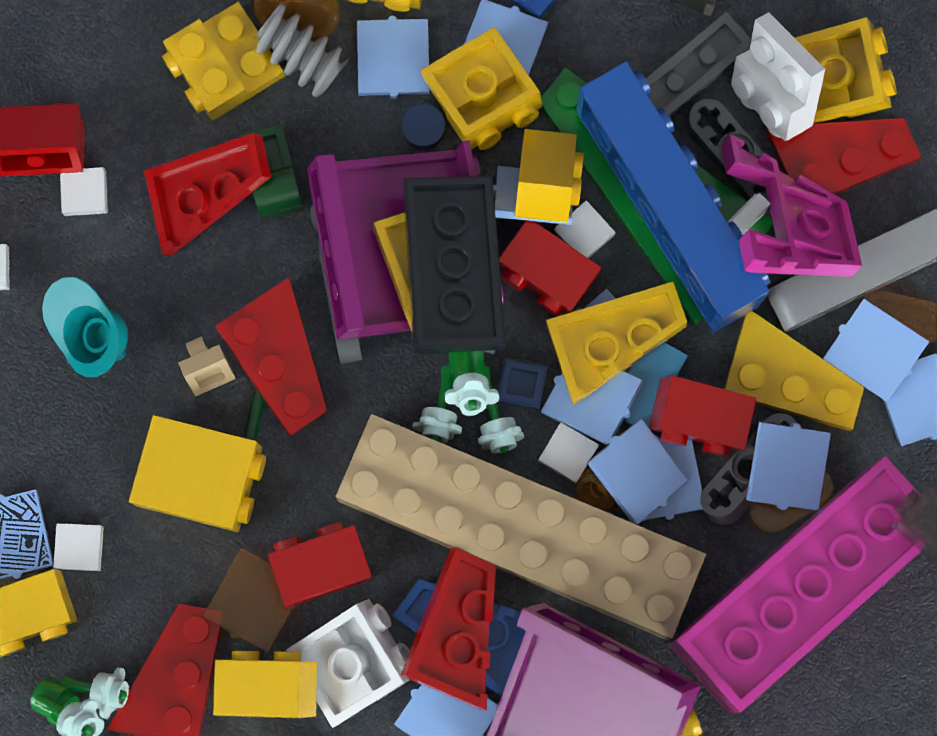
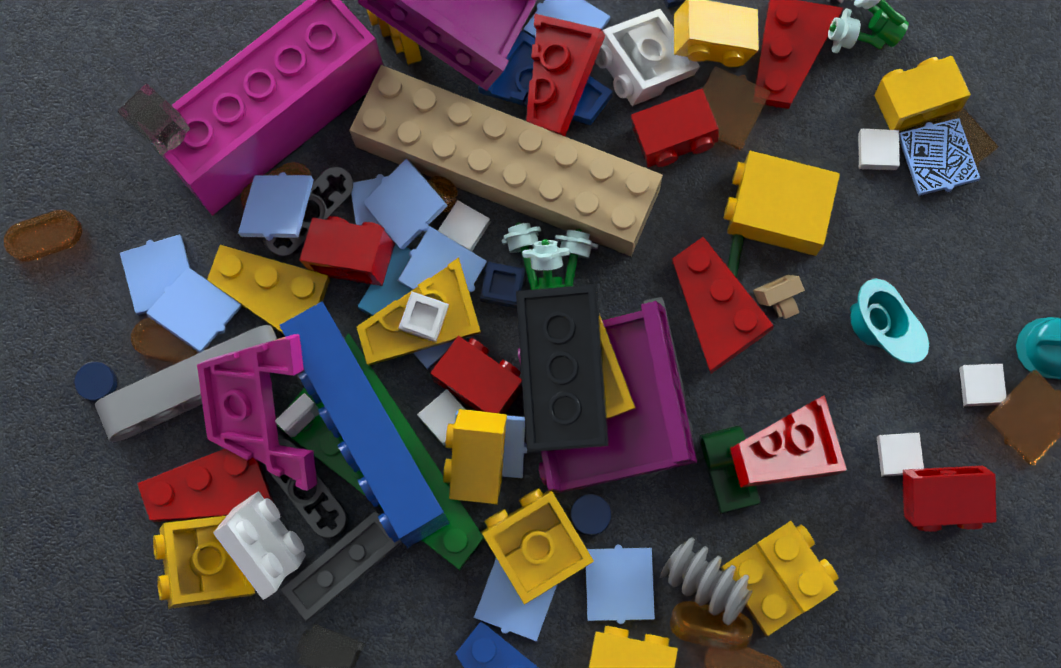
camera: 175 degrees left, 5 degrees down
(610, 330) = (423, 317): none -> white tile

